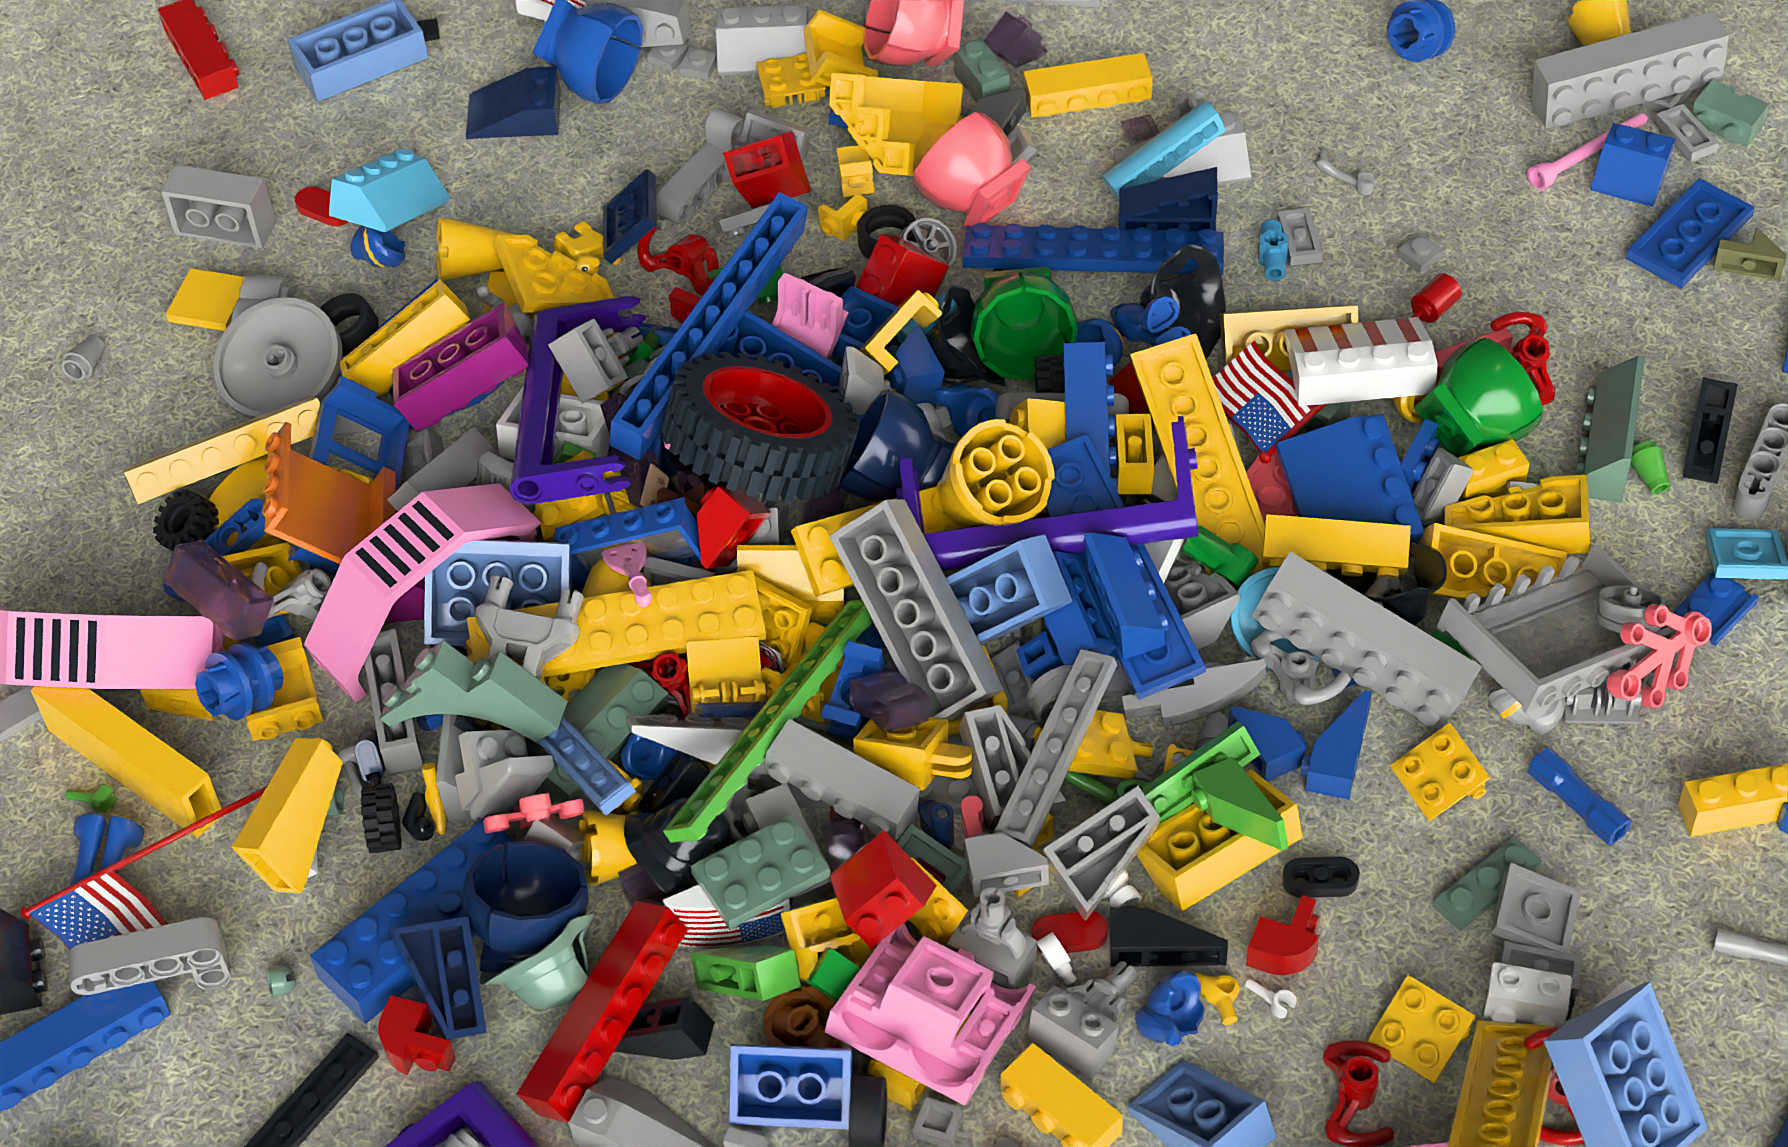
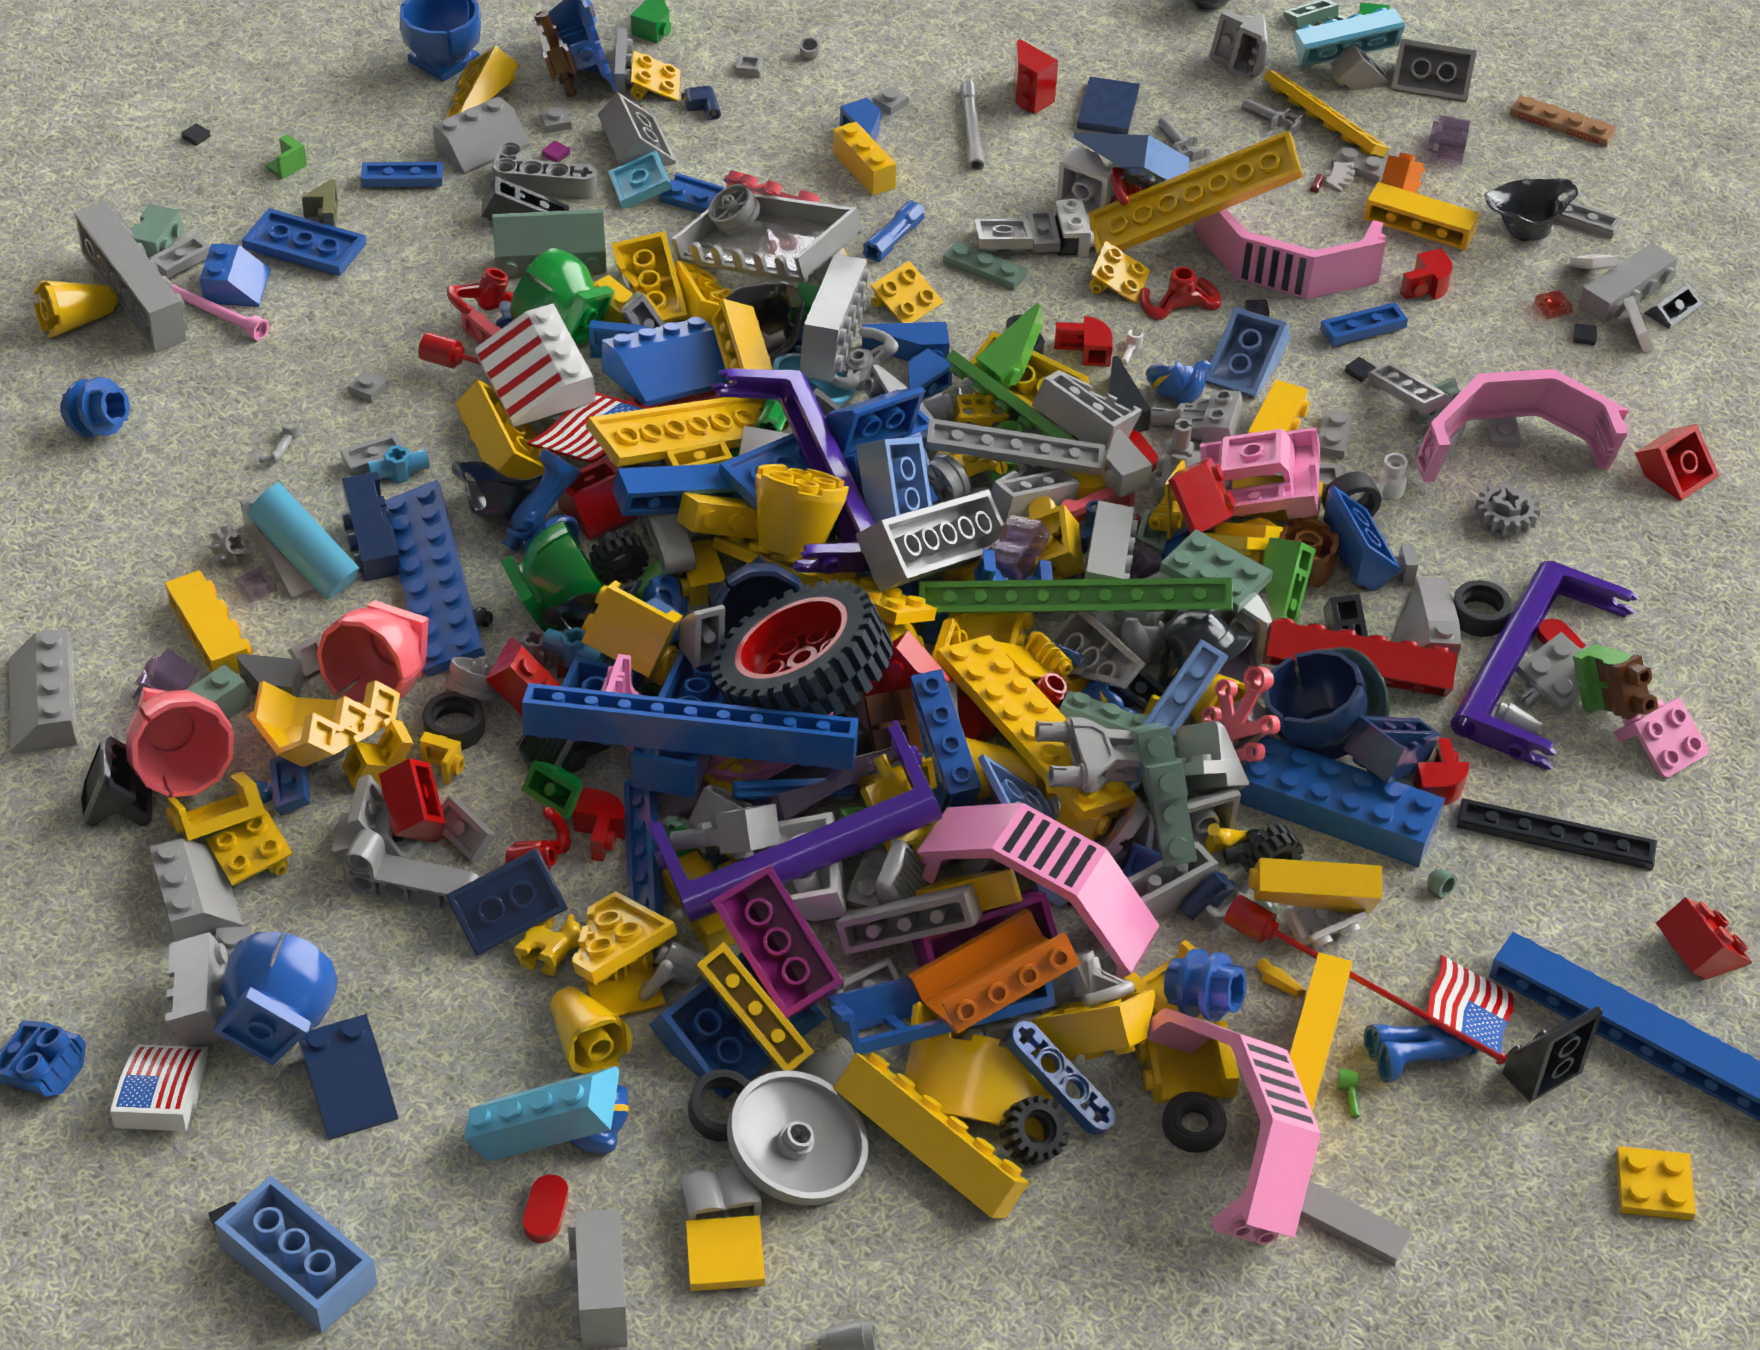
camera: 115 degrees left, 5 degrees down
(150, 956) = (1493, 940): light grey beam -> none
(218, 590) = (1149, 991): clear purple brick -> none
(246, 786) = (1279, 978): none -> yellow bar
(629, 560) = (994, 705): bright pink piece -> none
(832, 974) = (1273, 517): green tile -> none
(1056, 957) = (1163, 438): white piece -> none
(1220, 992) = (1138, 367): yellow animal -> none

